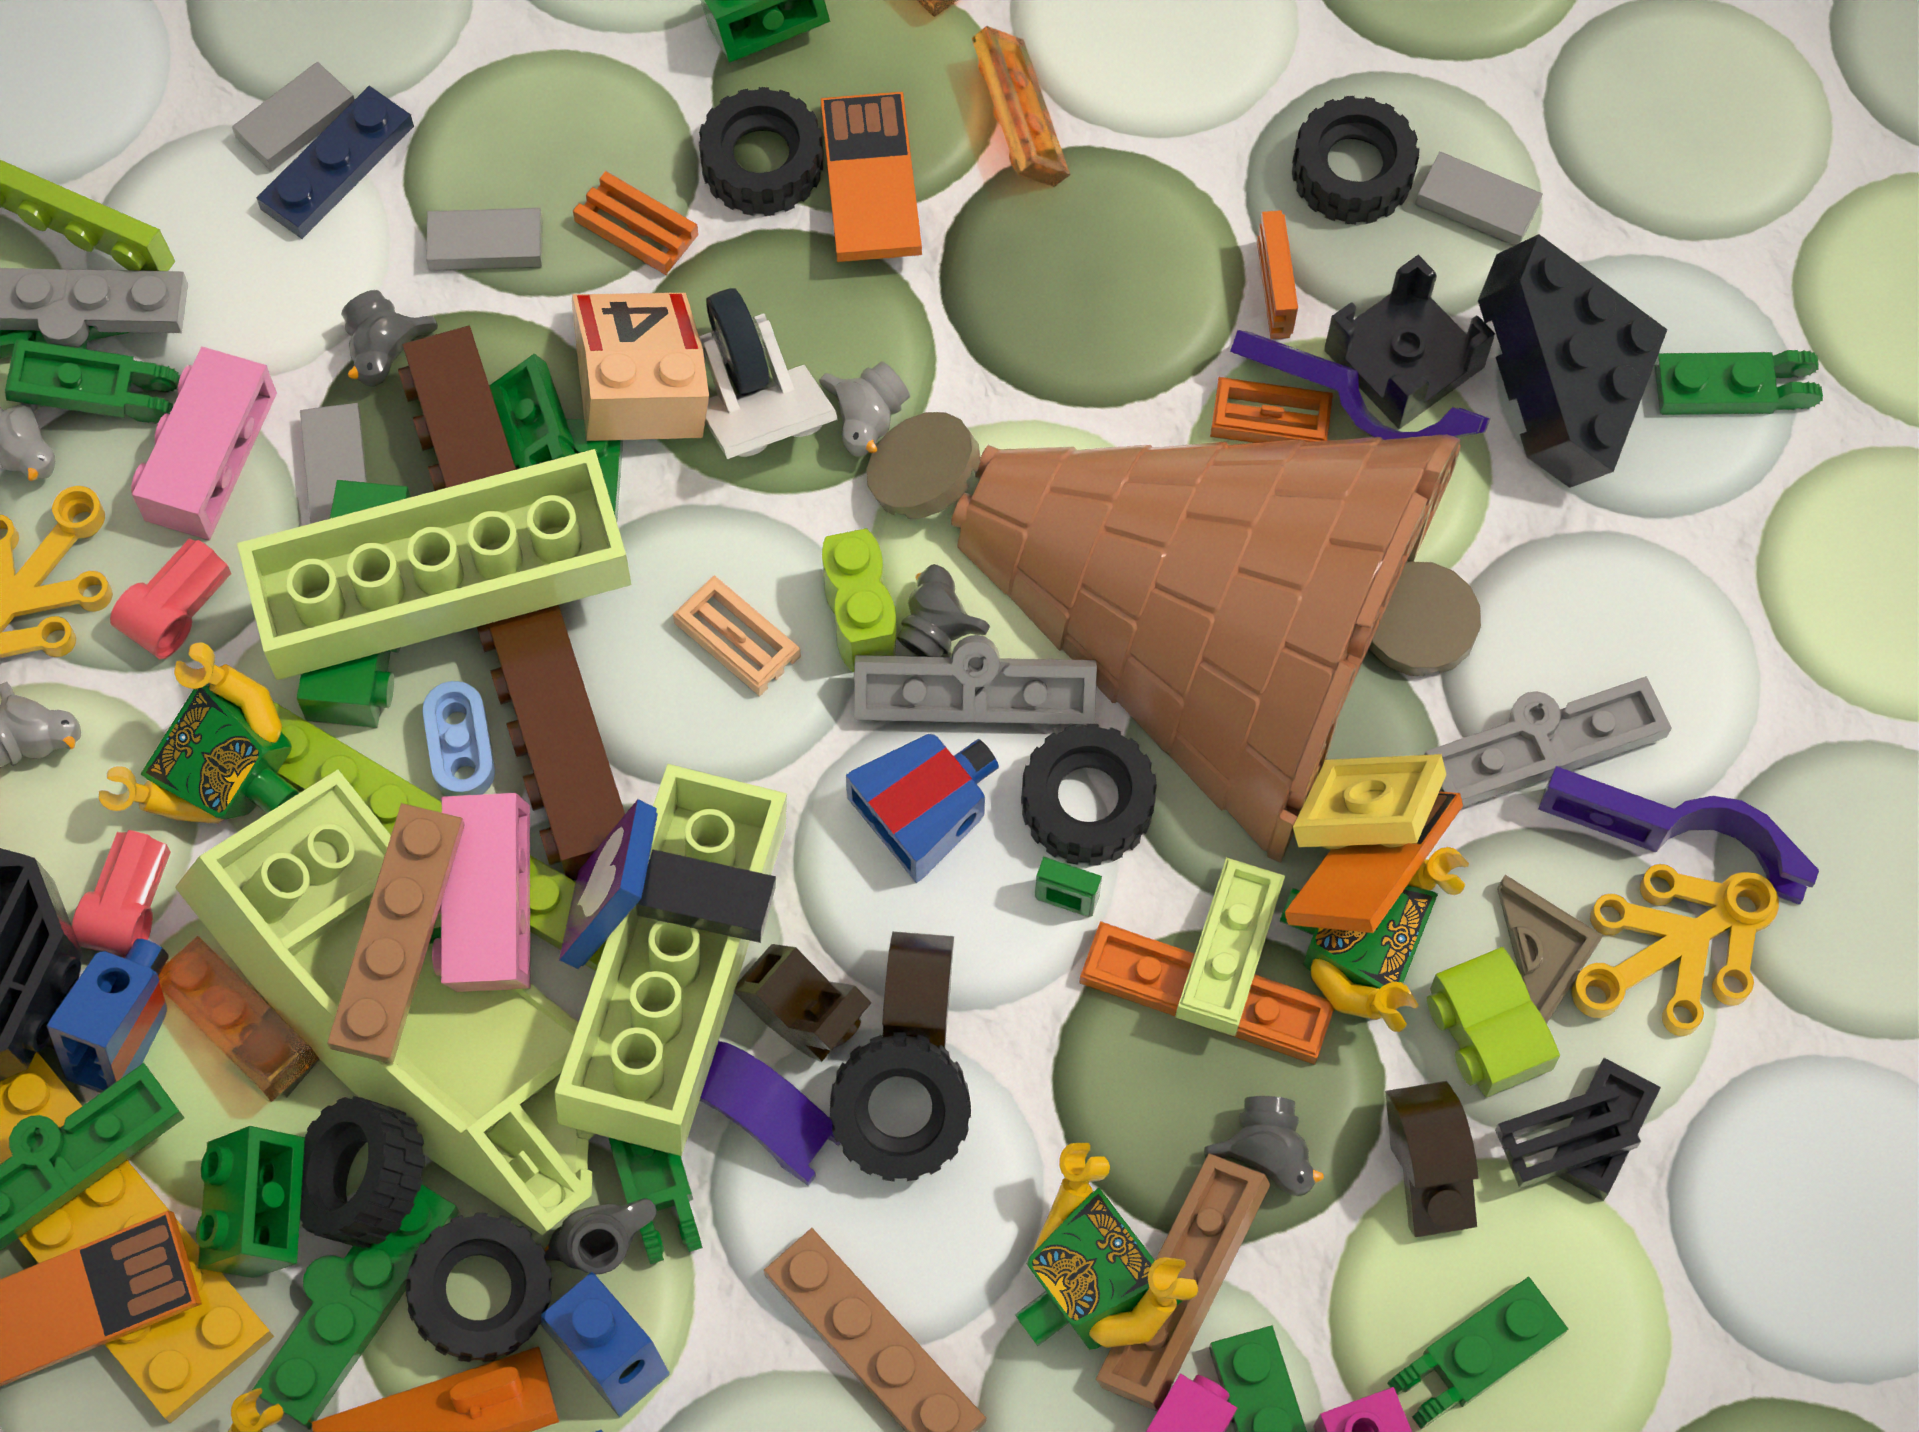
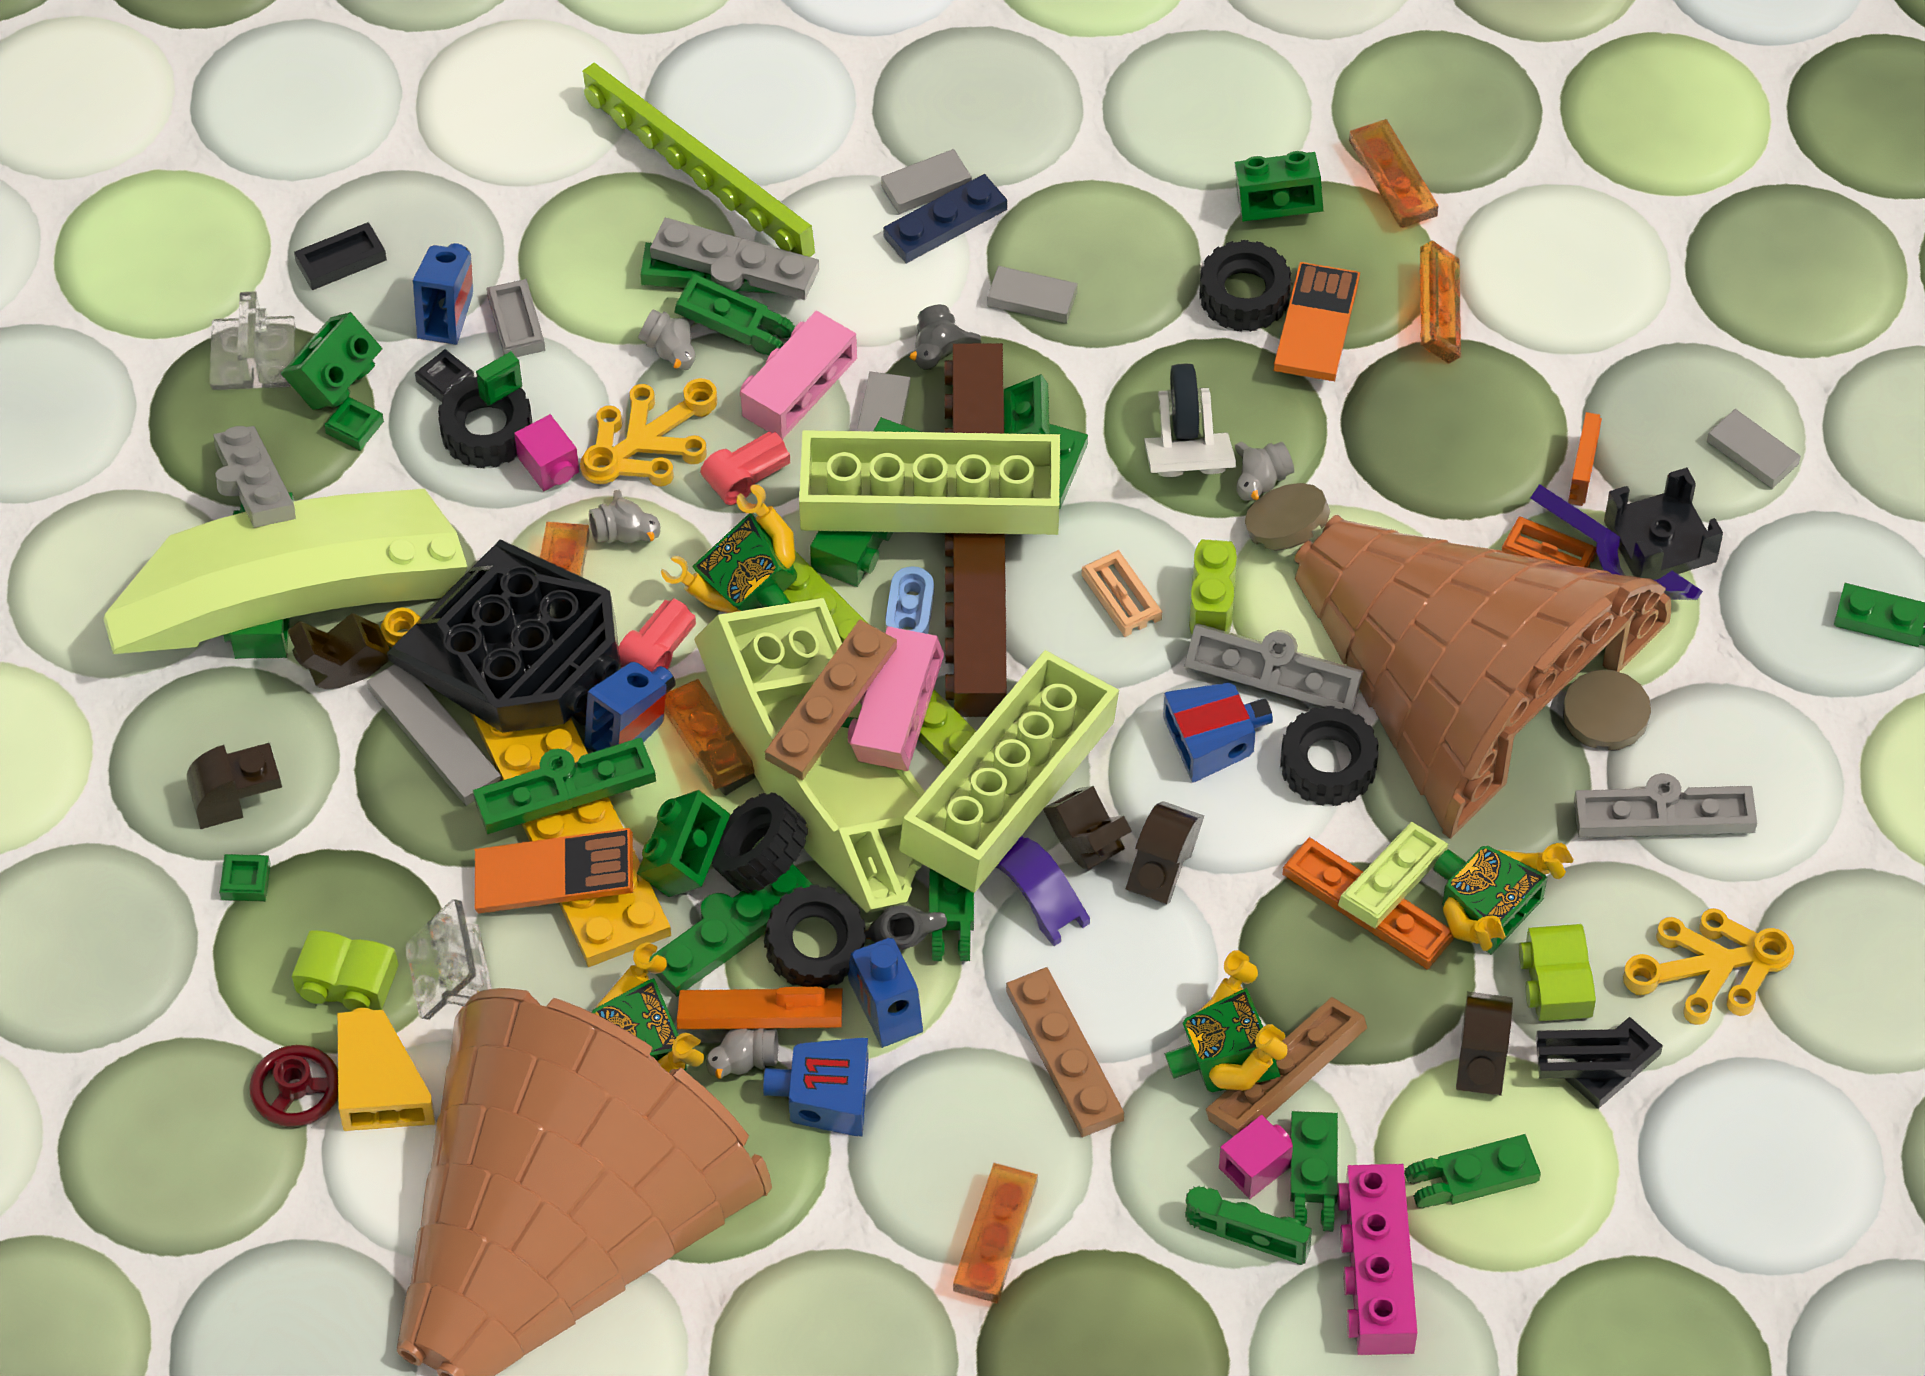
camera: 20 degrees right, 10 degrees down
(609, 884) = (980, 710): tile -> none
(640, 366) = (1111, 402): light nougat slope -> none
(645, 205) = (1147, 308): orange tile -> none
(706, 896) = (1042, 732): black tile -> none
(907, 1155) = (1096, 905): black tyre -> none
(936, 615) = (1263, 614): dark grey animal -> none
(1067, 887) = (1294, 808): green tile -> none
(1271, 1144) = (1377, 1002): dark grey animal -> none
(1361, 121) = (1669, 426): black tyre -> none
(1362, 882) = (1509, 841): orange piece -> none
(1370, 801) = (1520, 806): light yellow plate -> none
(1546, 944) = (1616, 939): dark tan tile -> none
(1569, 357) = (1770, 561): black brick -> none
(1652, 824) = (1725, 883): dark purple piece -> none

